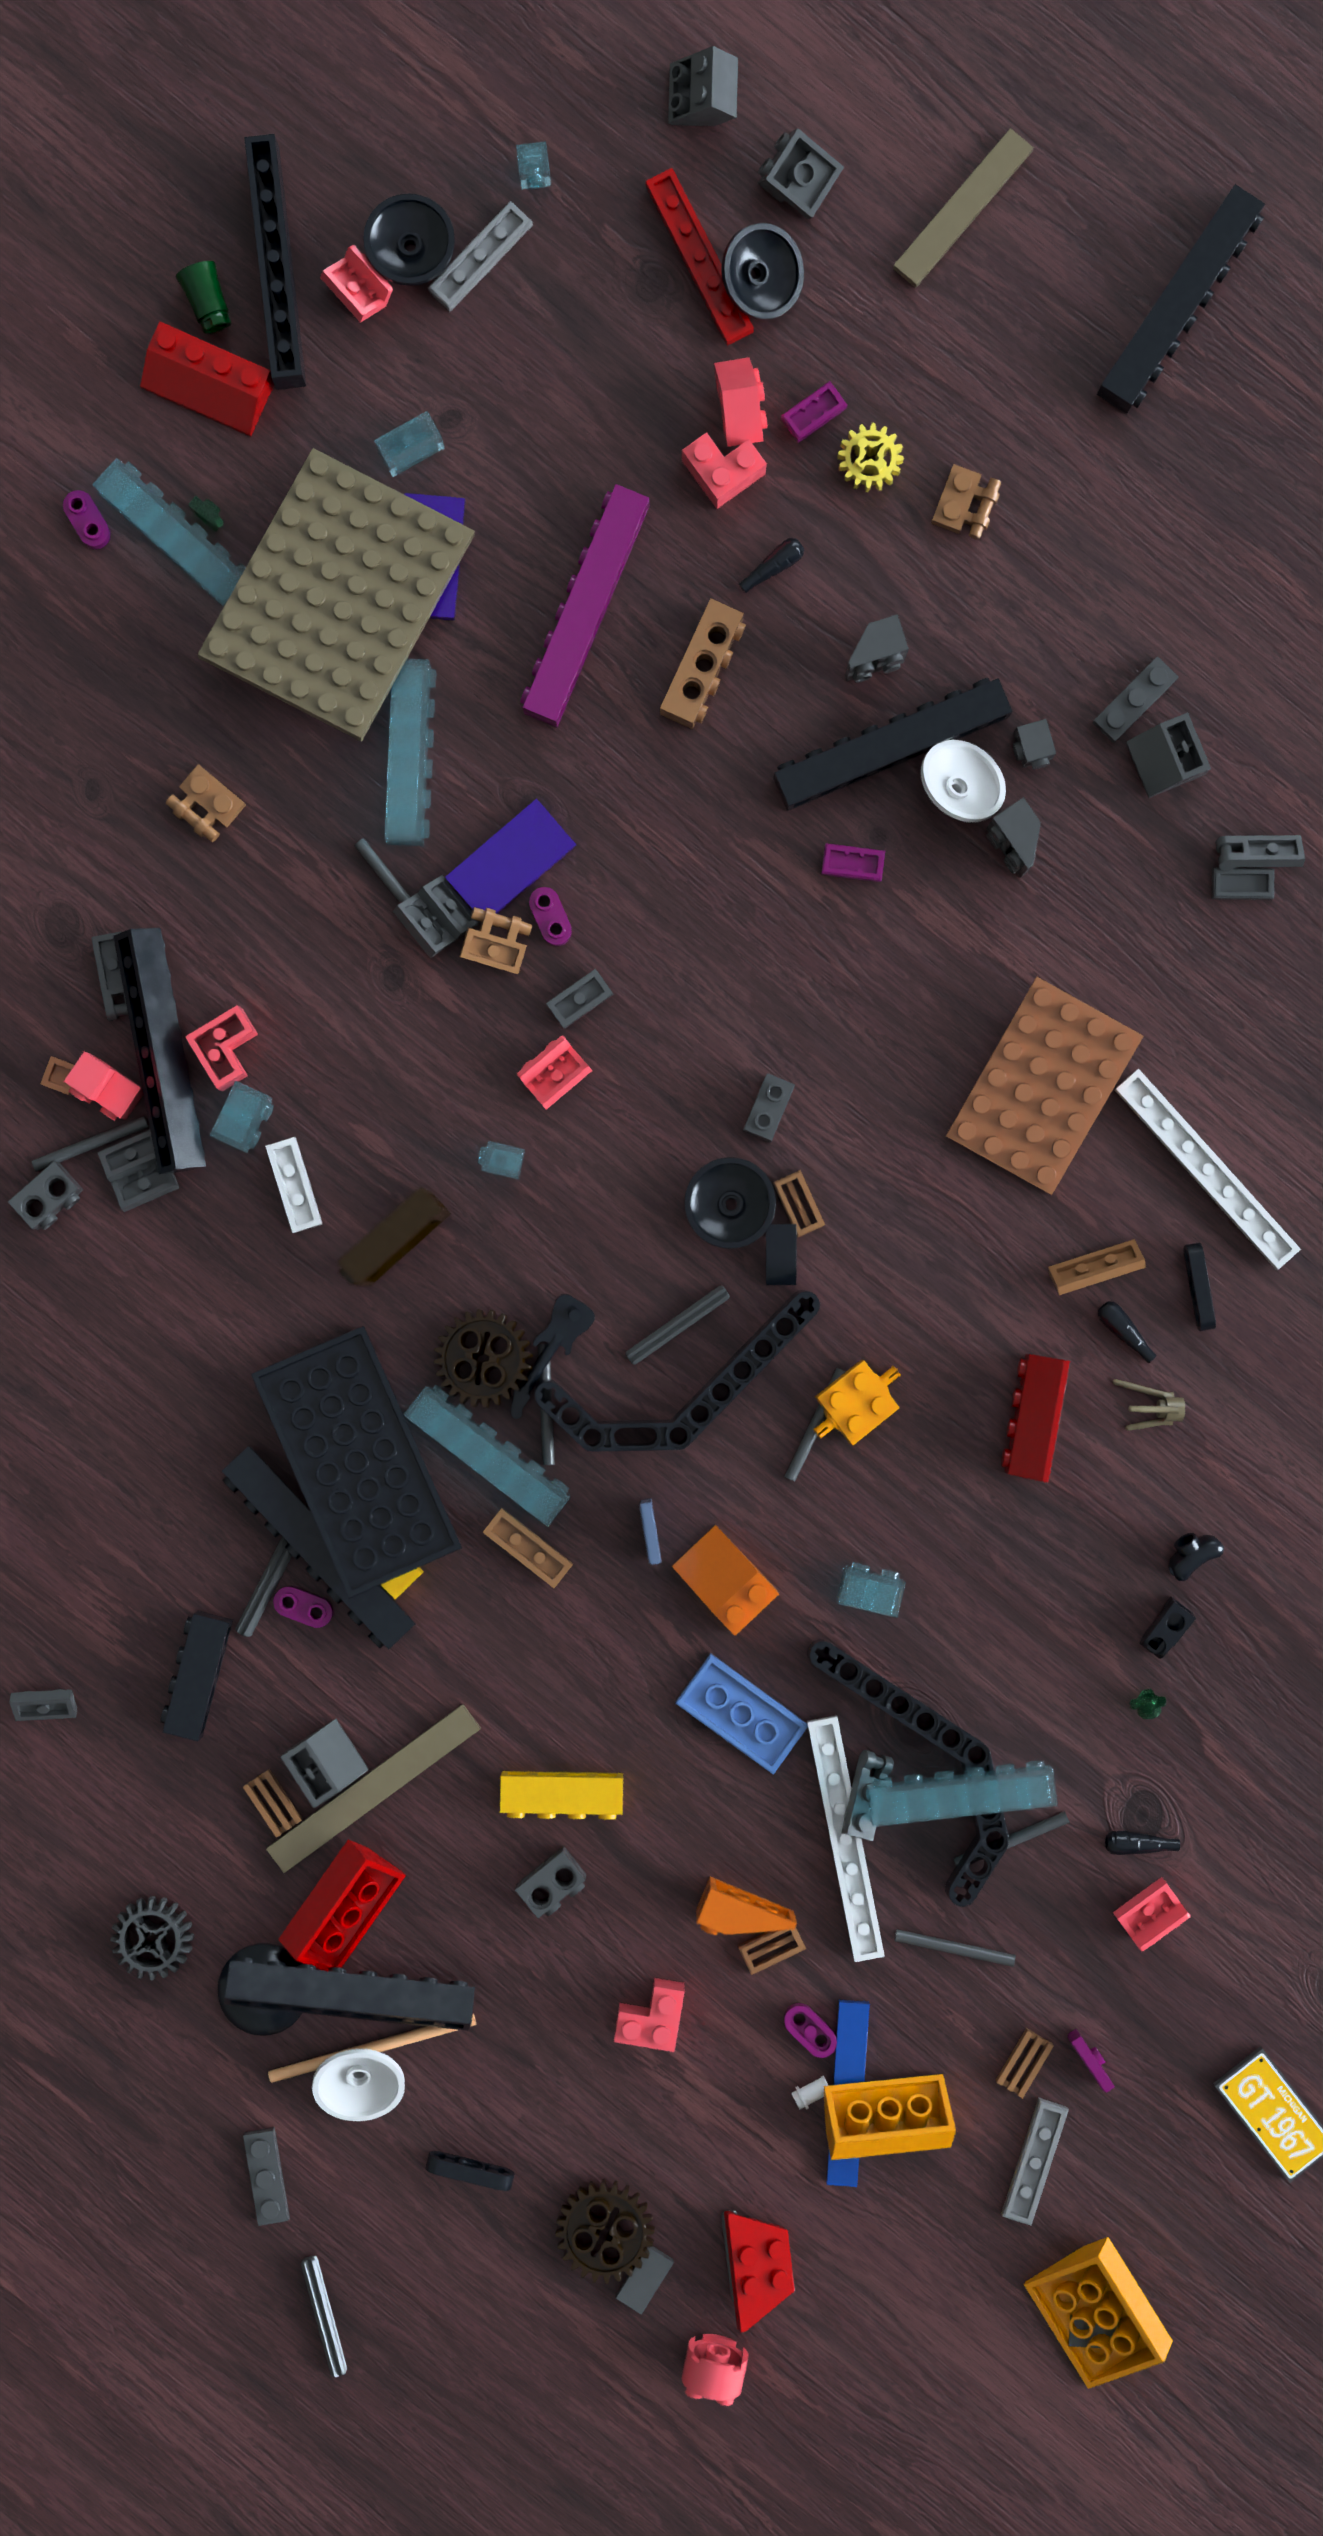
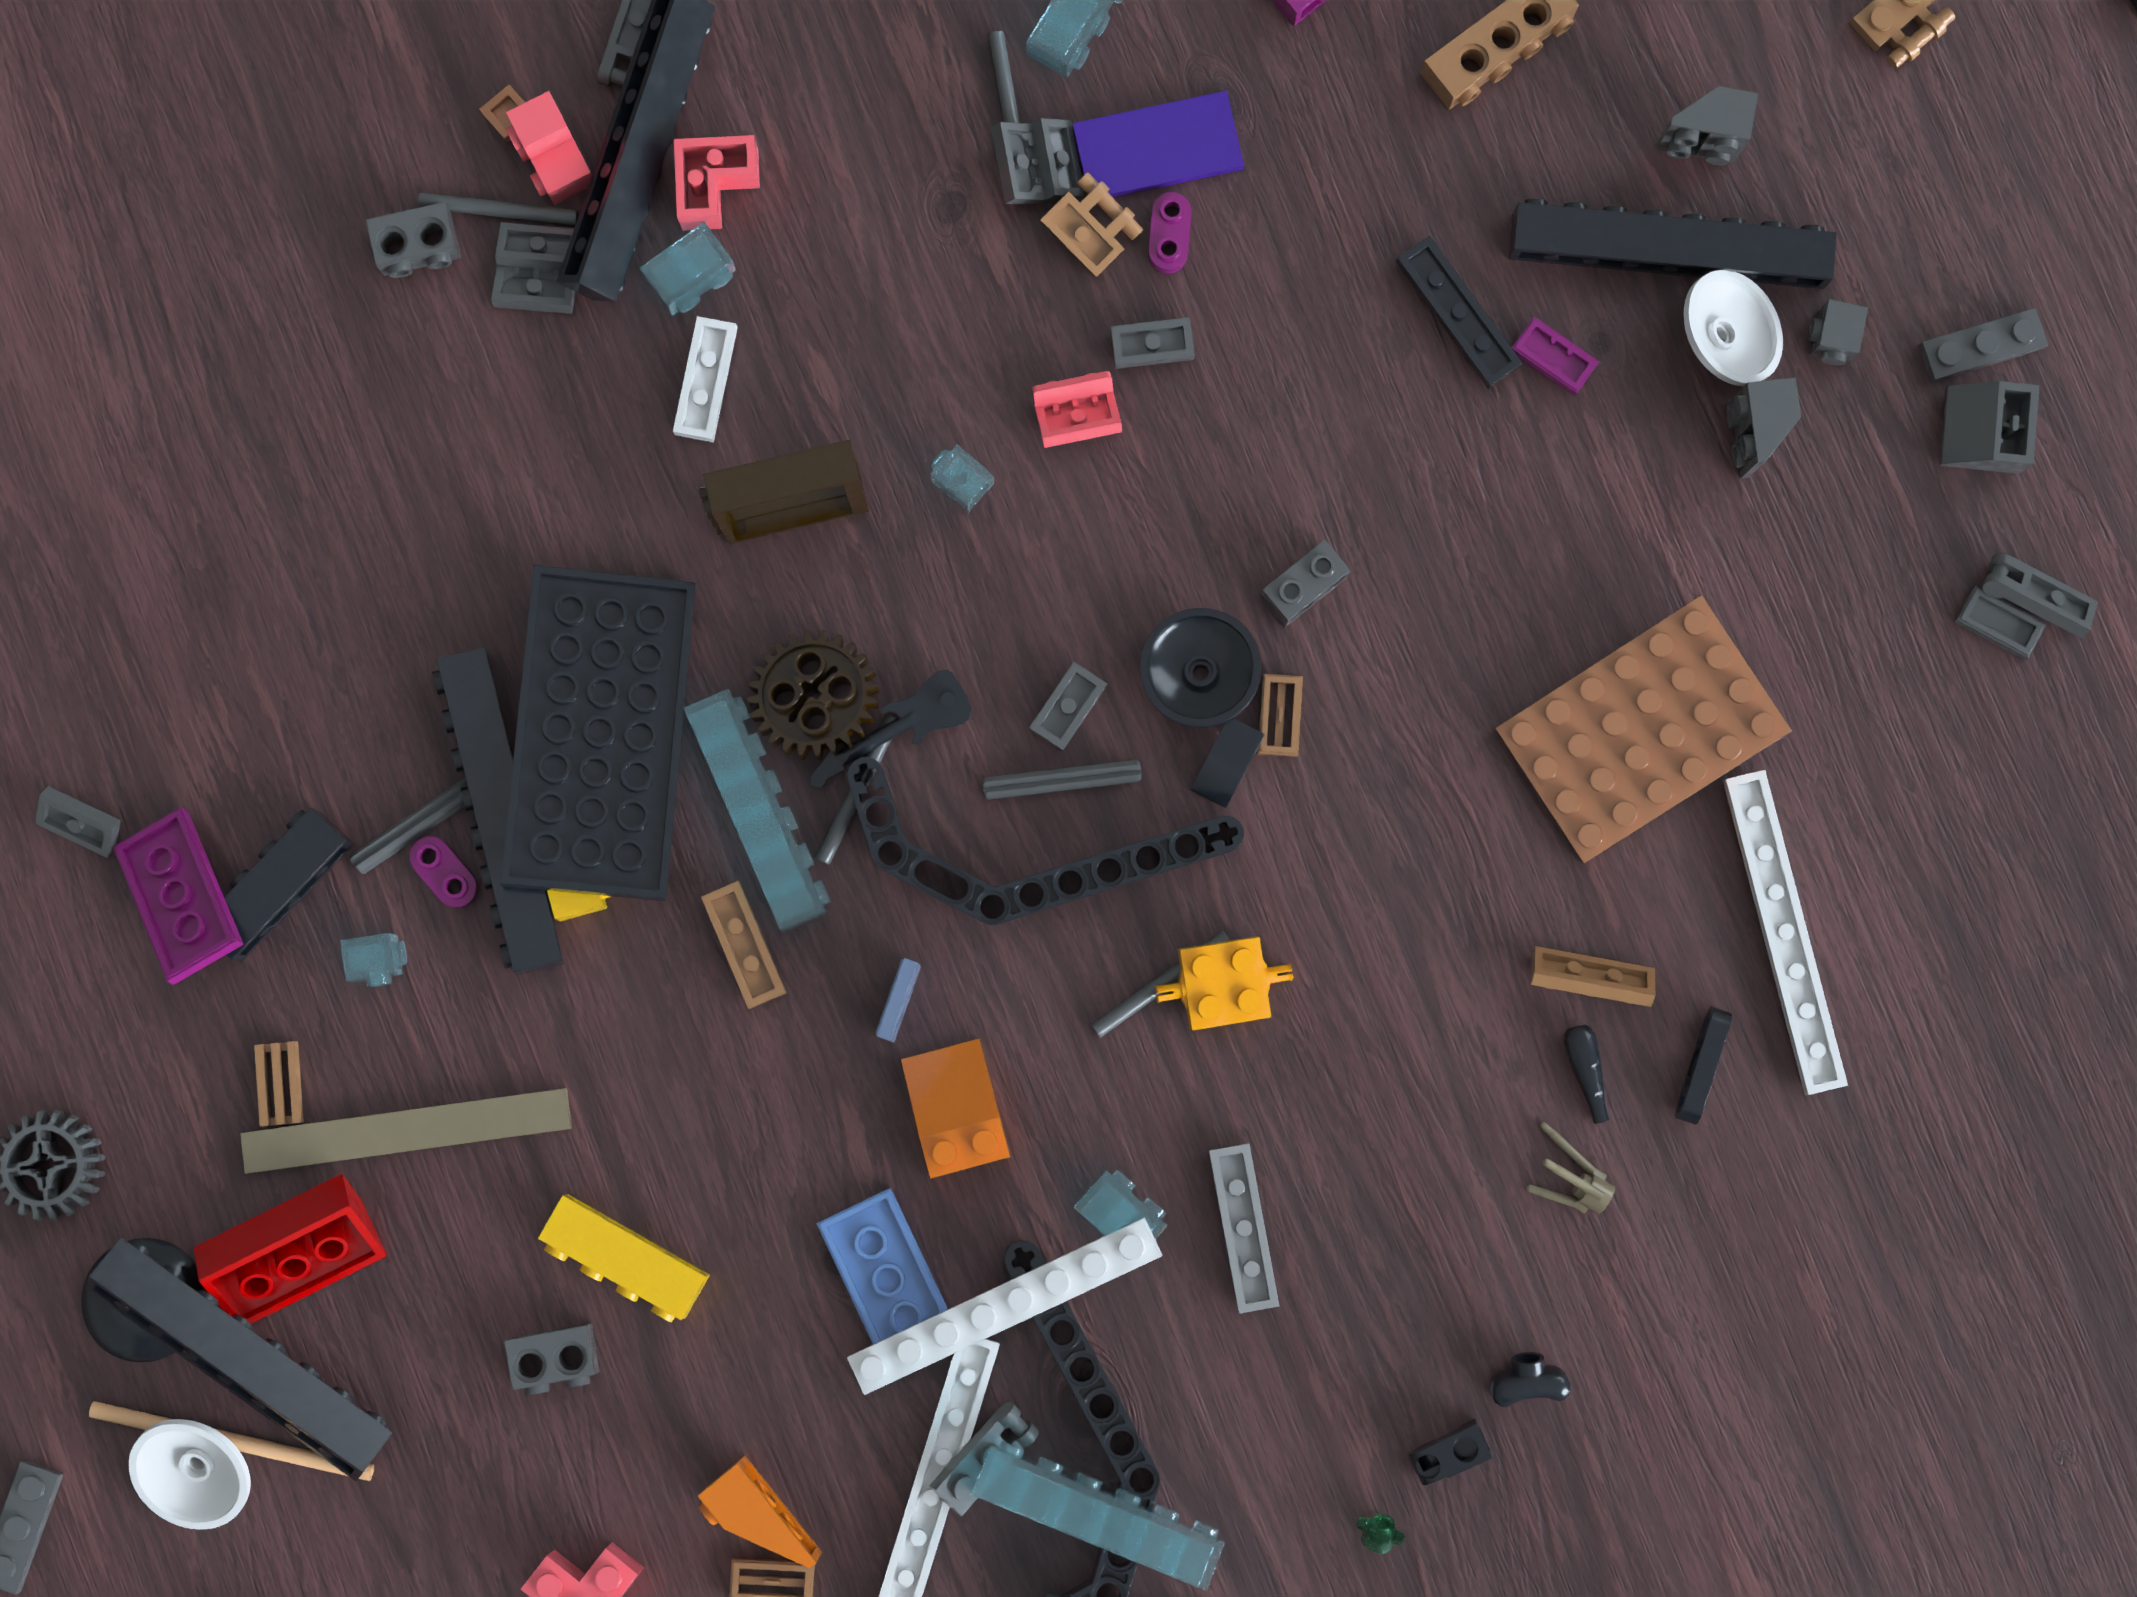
camera: 30 degrees right, 5 degrees down
(138, 1718) = (177, 896): none -> magenta tile
(290, 1689) = (373, 959): none -> clear light blue brick
(324, 1763) = (365, 1067): dark grey slope -> none
(655, 1274) = (1068, 706): none -> dark grey plate
(773, 867) = (1459, 312): none -> black plate
(828, 1692) = (1004, 1306): none -> white plate
(955, 1555) = (1243, 1228): none -> light grey plate
(1036, 1417) = (1427, 1113): red slope -> none

